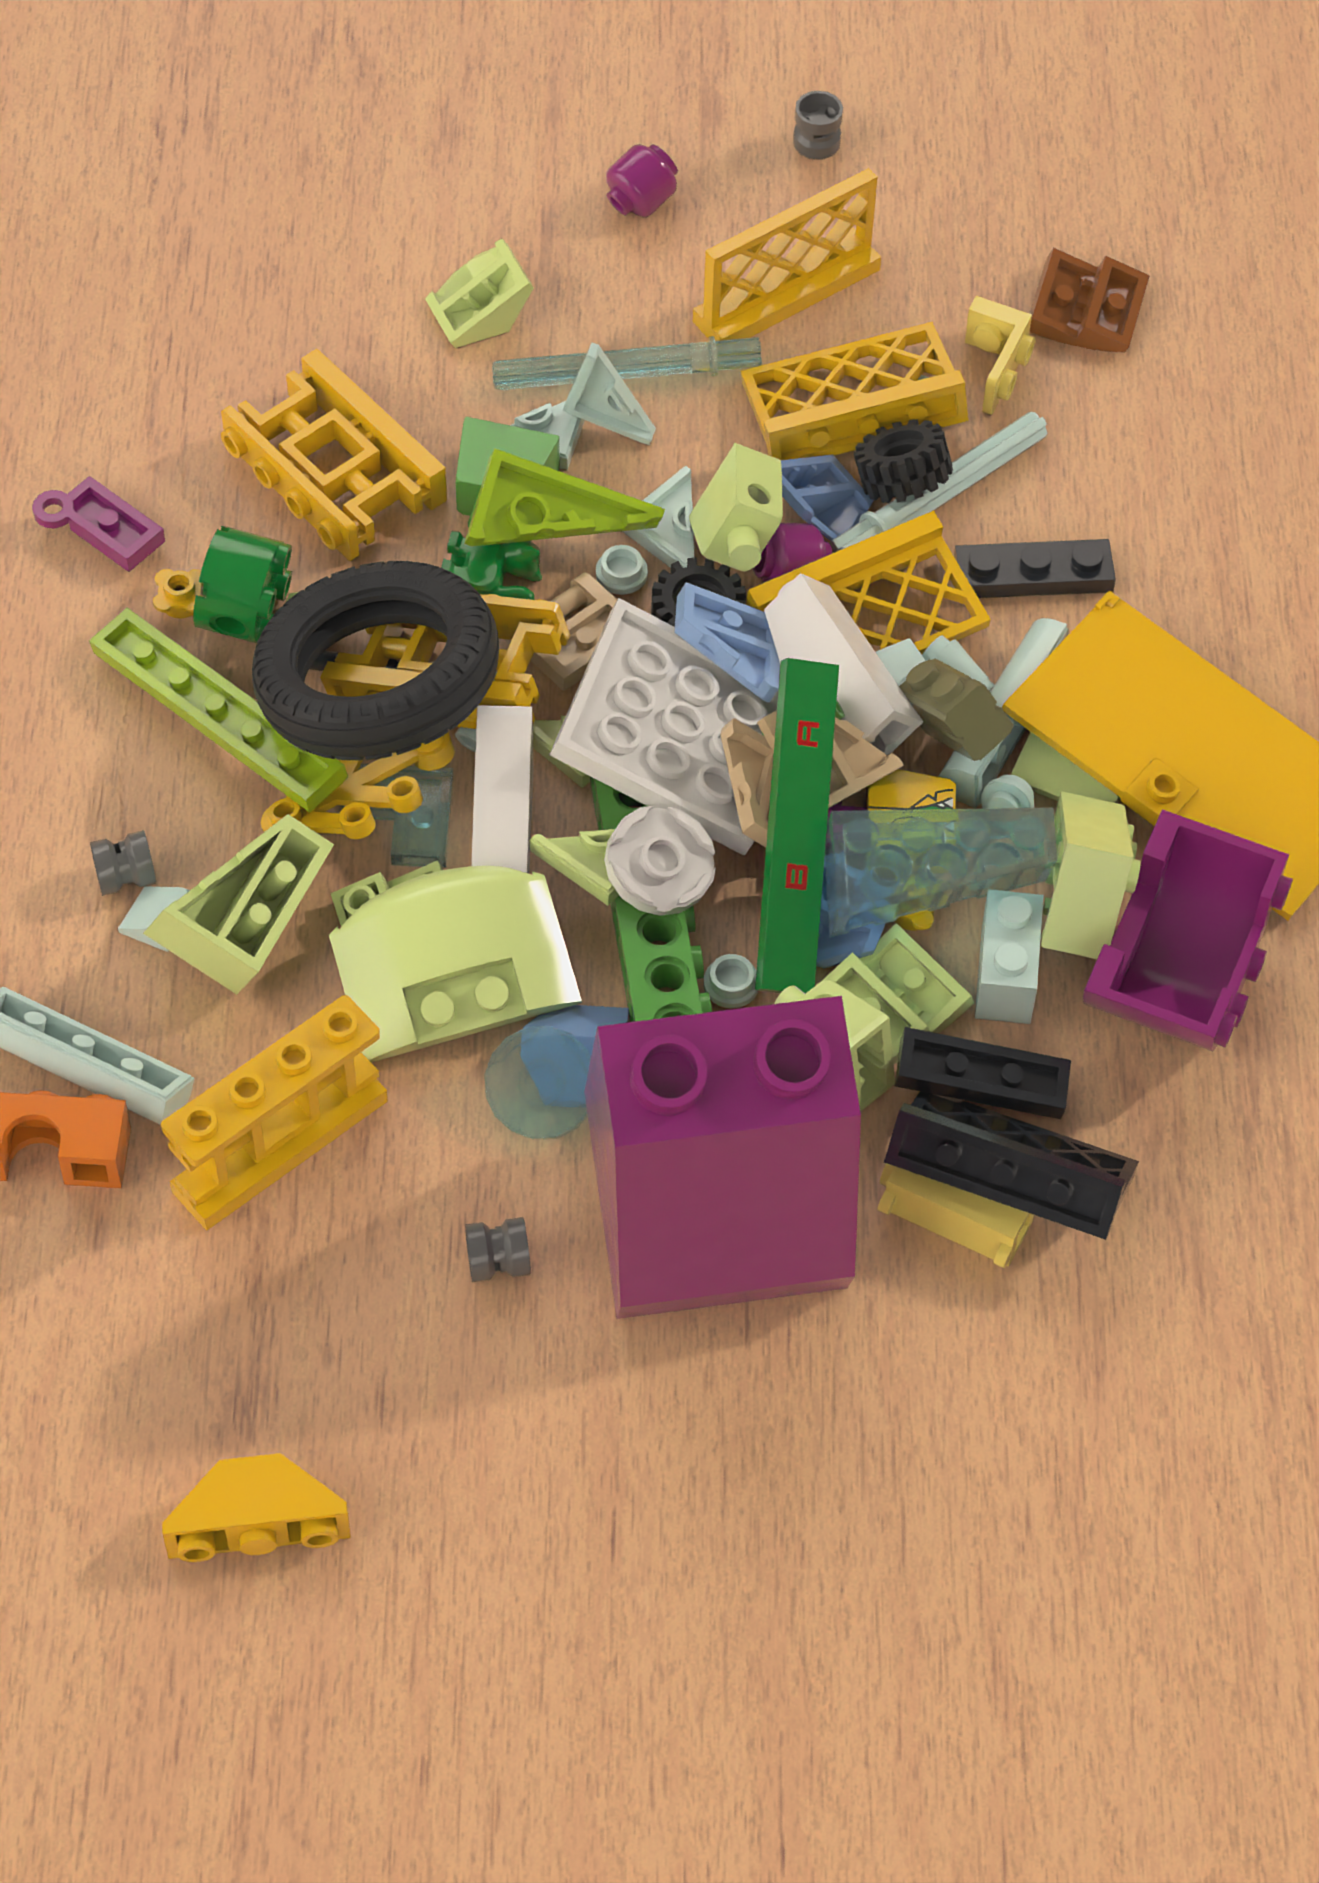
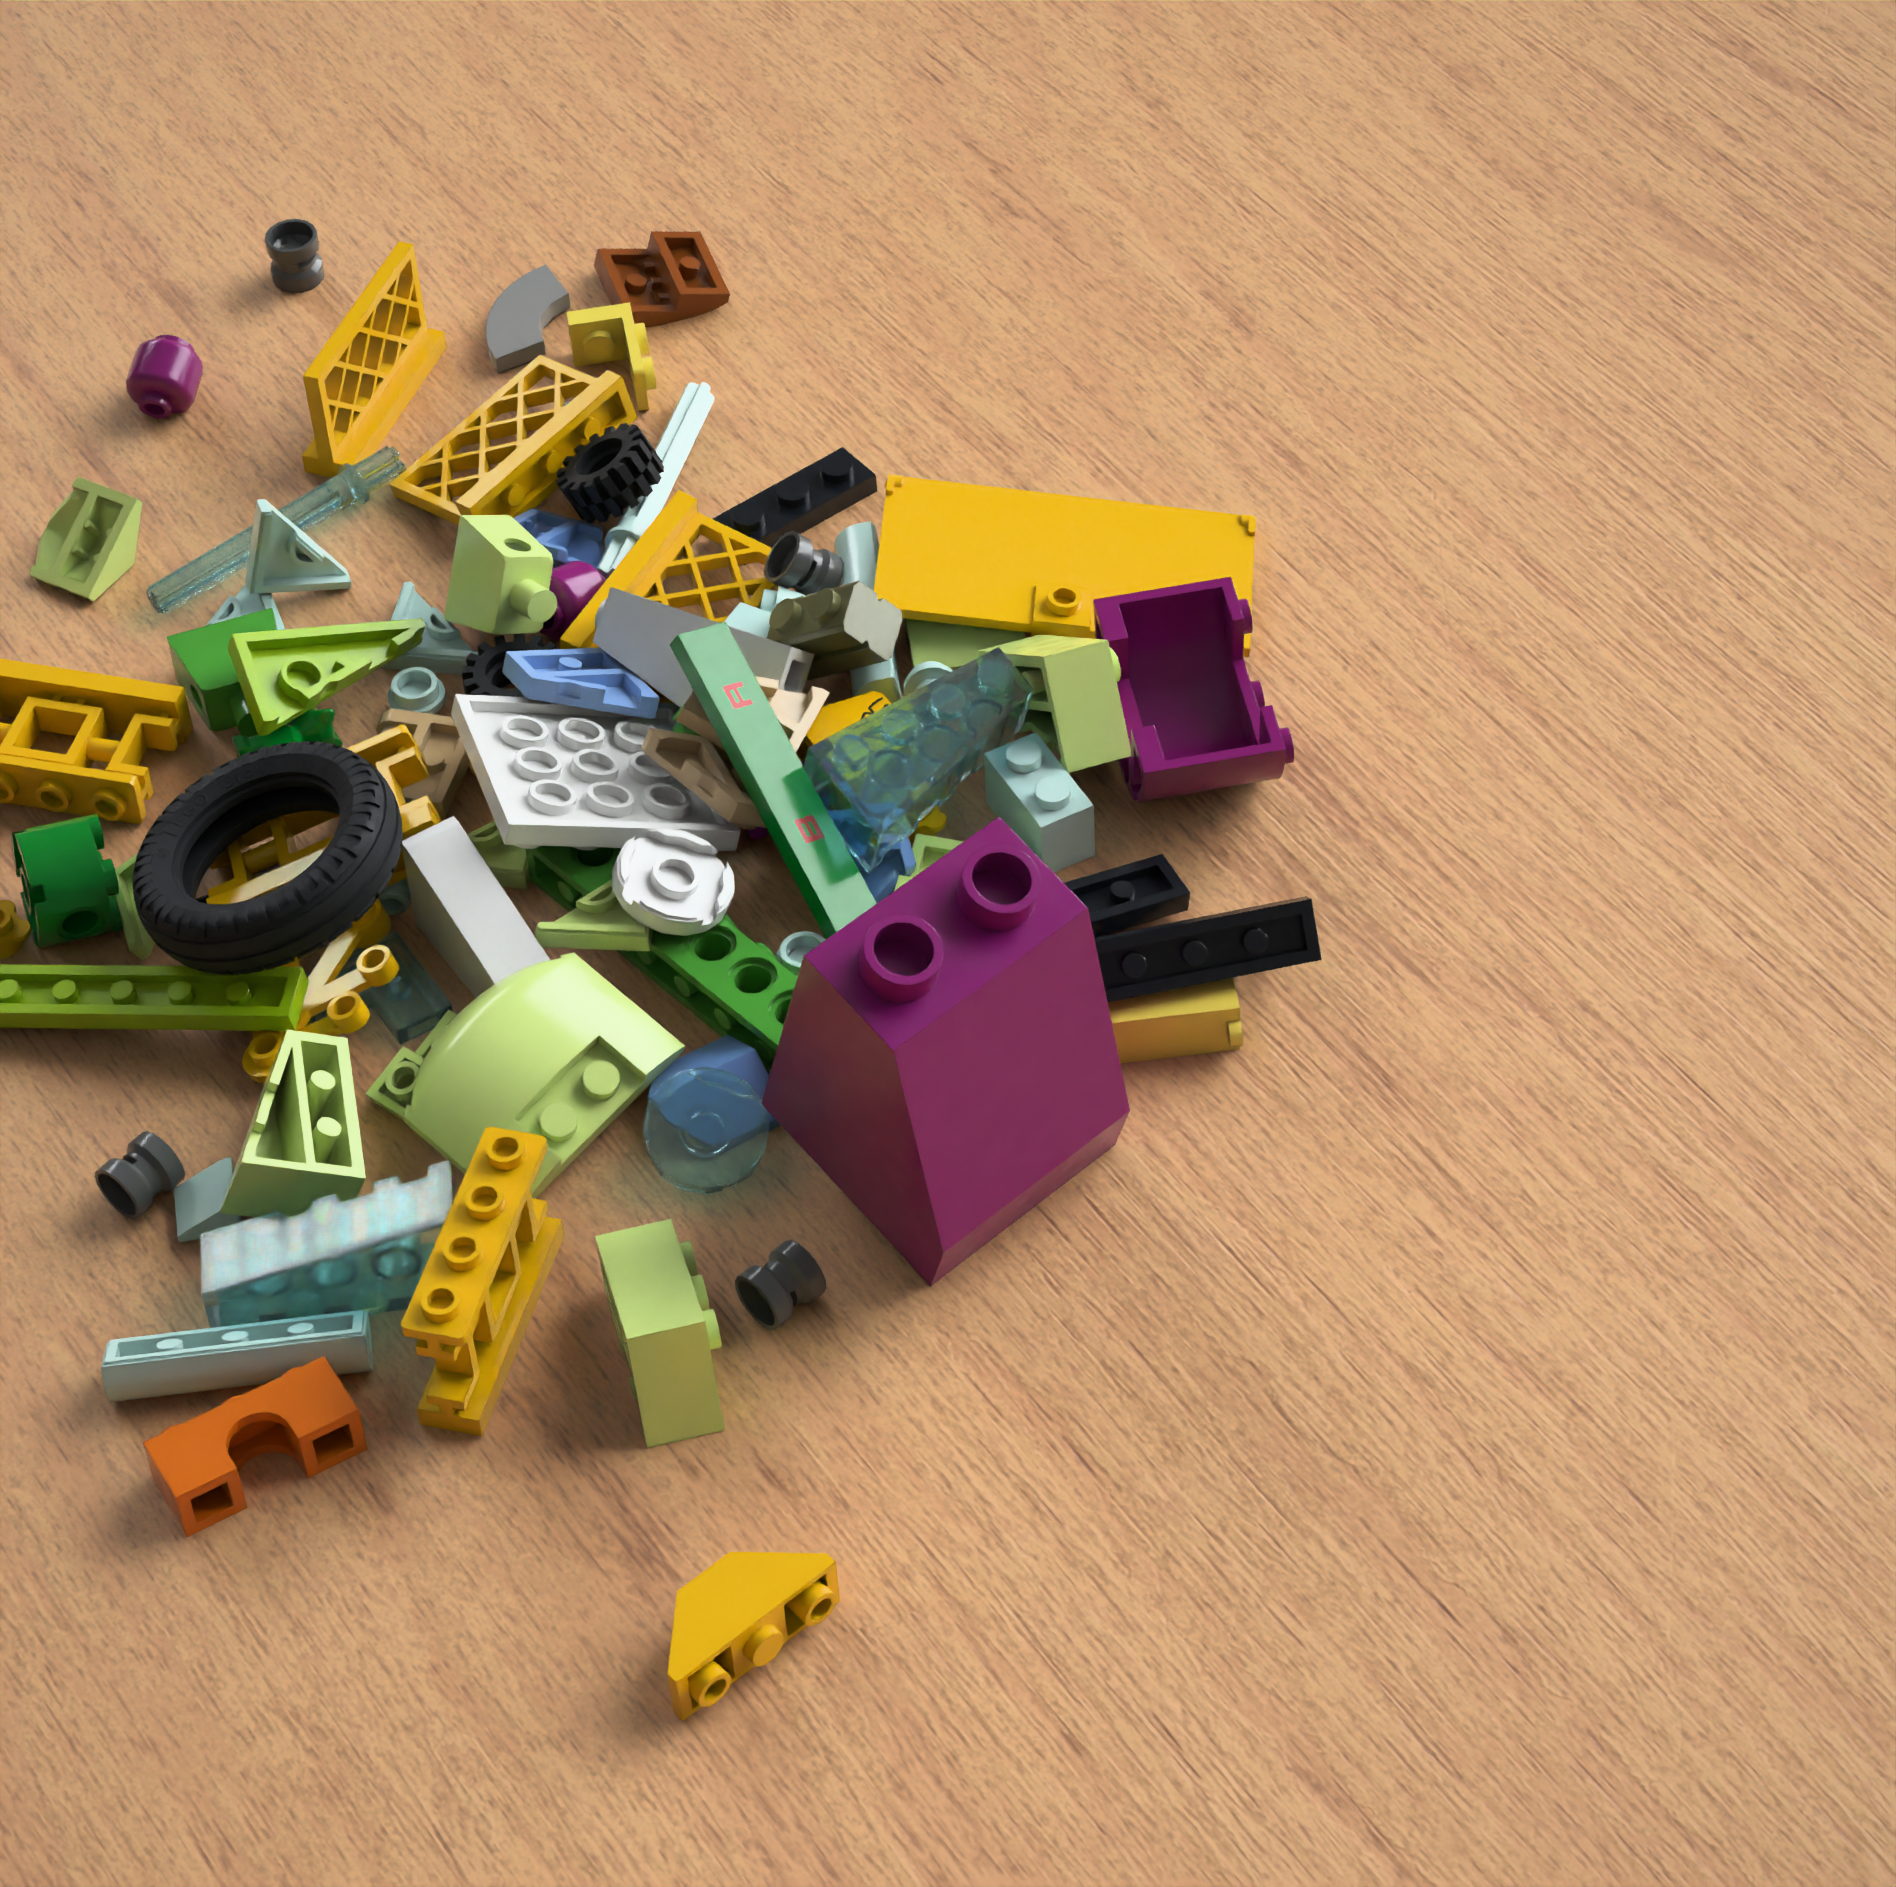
camera: 30 degrees left, 10 degrees down
(184, 1016) = (330, 1257): none -> clear light blue wedge
(379, 1230) = (663, 1330): none -> yellowish green wedge
(951, 276) = (520, 317): none -> light grey tile
(986, 635) = (800, 566): none -> dark grey wheel

